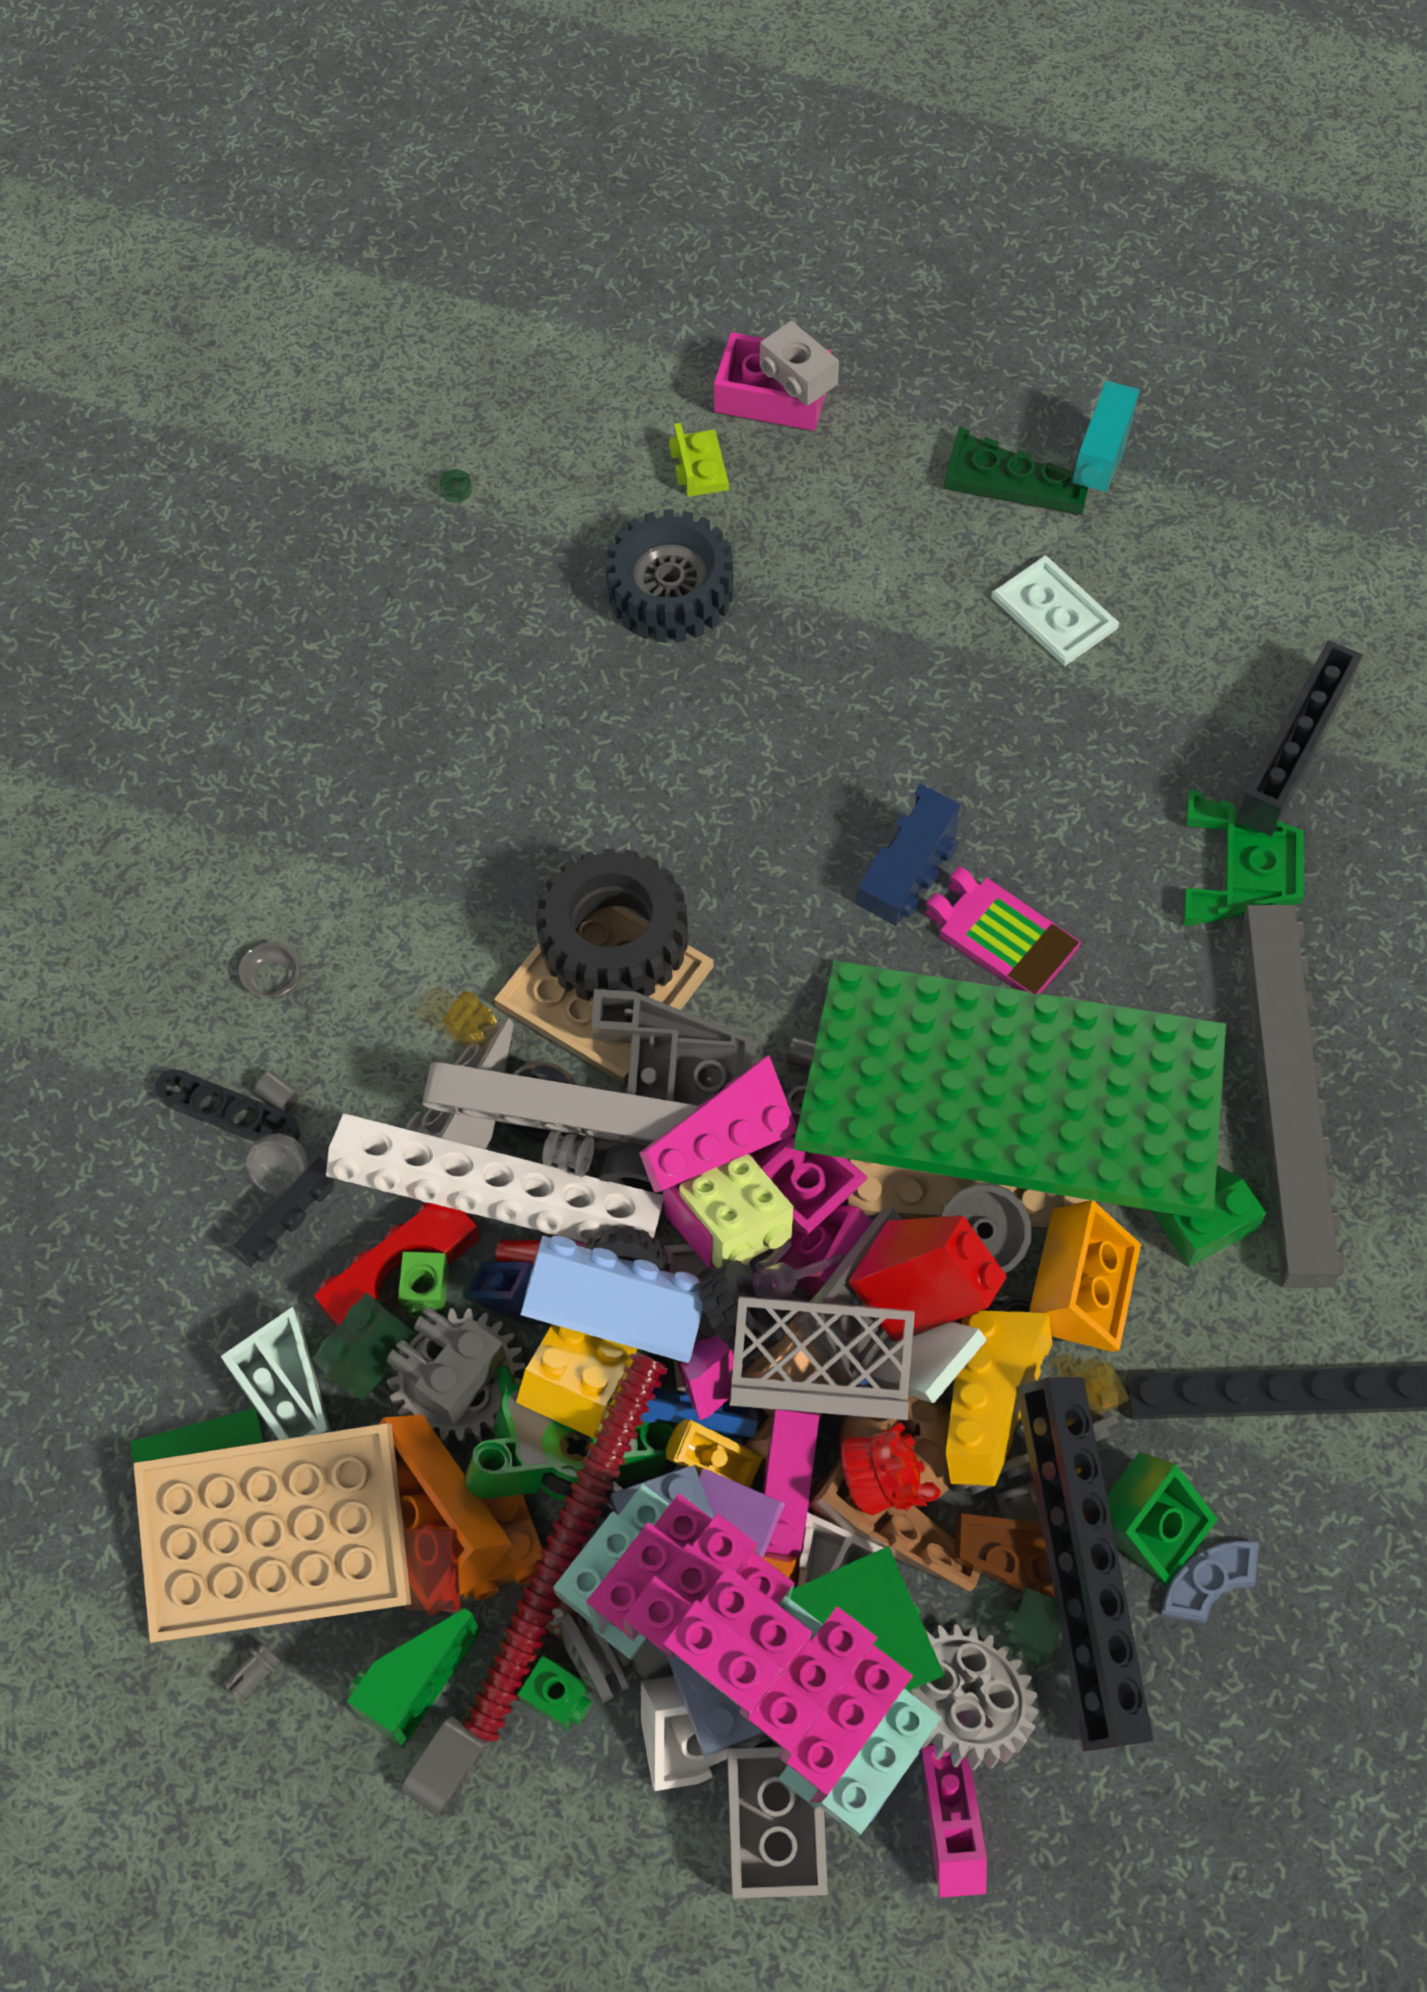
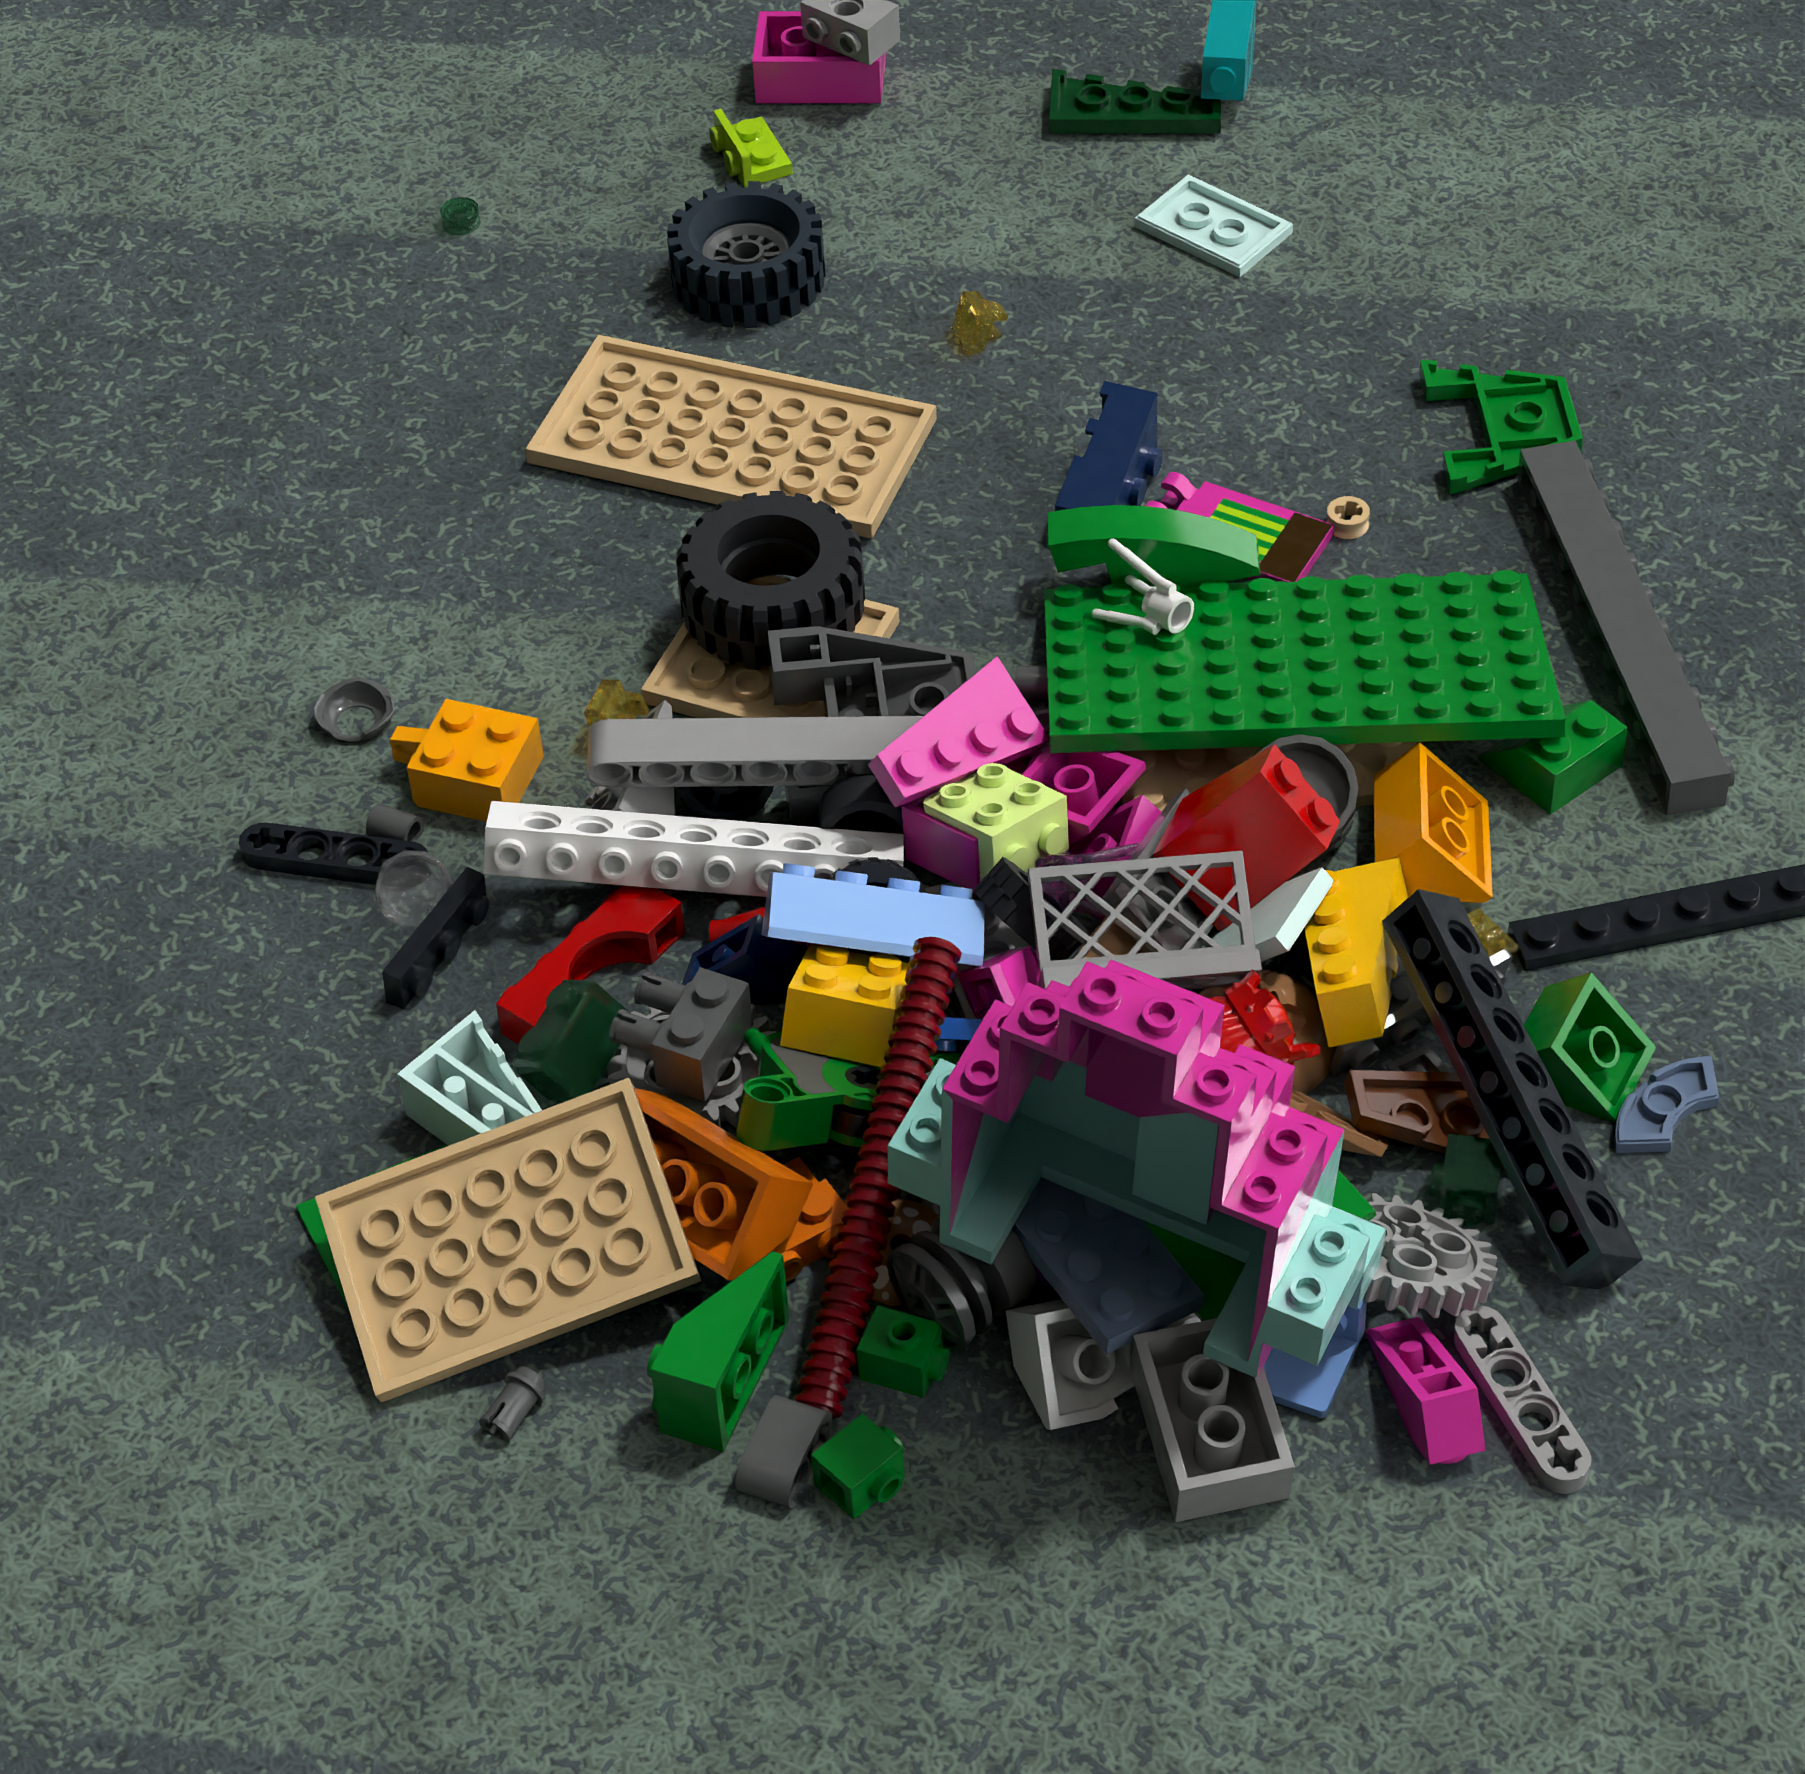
camera: 10 degrees left, 15 degrees down
(347, 1044) = (469, 758): none -> light orange hinge
(420, 1268) = (622, 966): bright green brick -> none
(432, 1569) = (721, 1225): clear red piece -> none
(501, 1796) = (859, 1466): none -> green brick
(568, 1152) = (777, 800): dark grey bush -> none
(622, 754) = (730, 431): none -> tan plate
(840, 677) = (975, 321): none -> clear yellow tile
(918, 1018) = (1161, 604): none -> white plant
(925, 946) = (1171, 542): none -> green slope
(1032, 1842) = (1526, 1397): none -> light grey beam
(1100, 944) = (1351, 506): none -> tan bush
(1299, 738) = (1534, 286): black brick -> none

